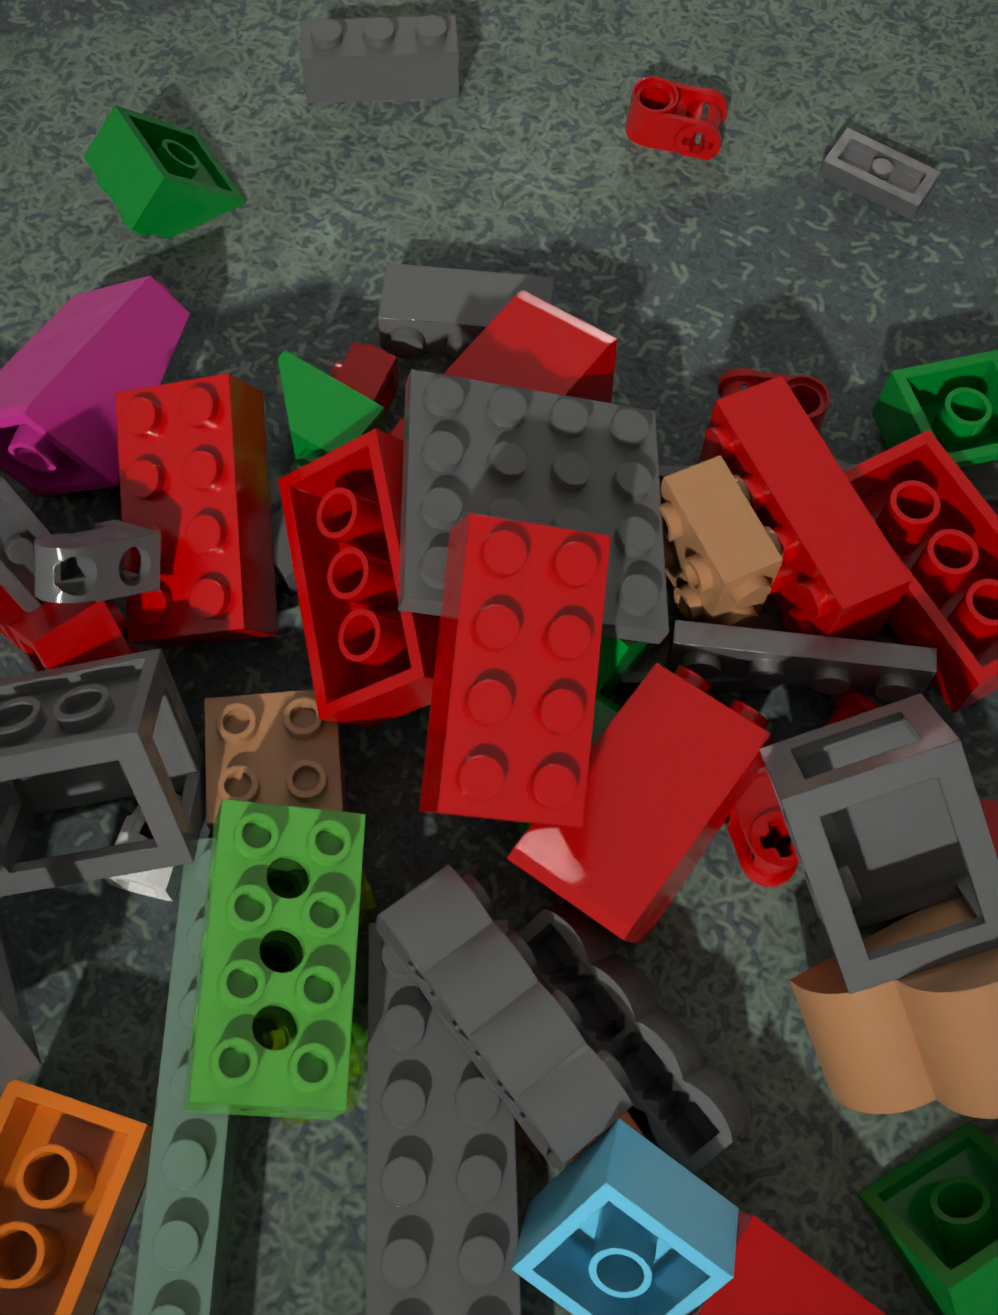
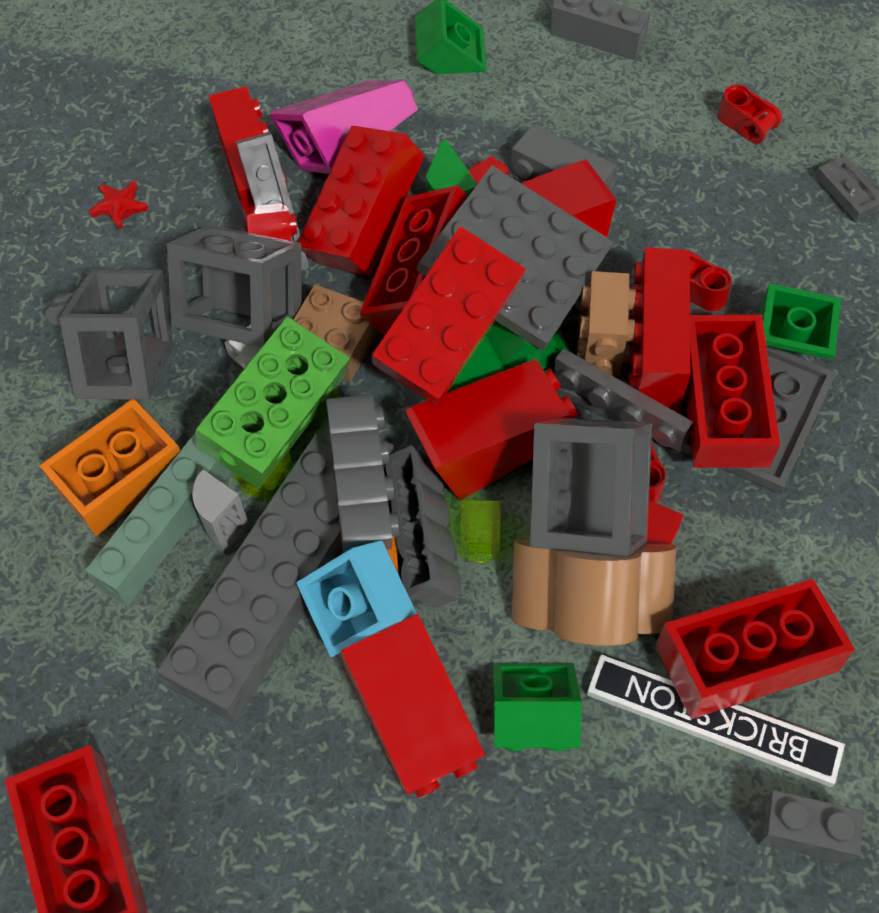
camera: 35 degrees right, 5 degrees down
(92, 563) = (295, 194): dark grey leg -> none
(284, 1203) = (219, 511): none -> light grey brick
(714, 984) = (480, 530): none -> clear neon green brick

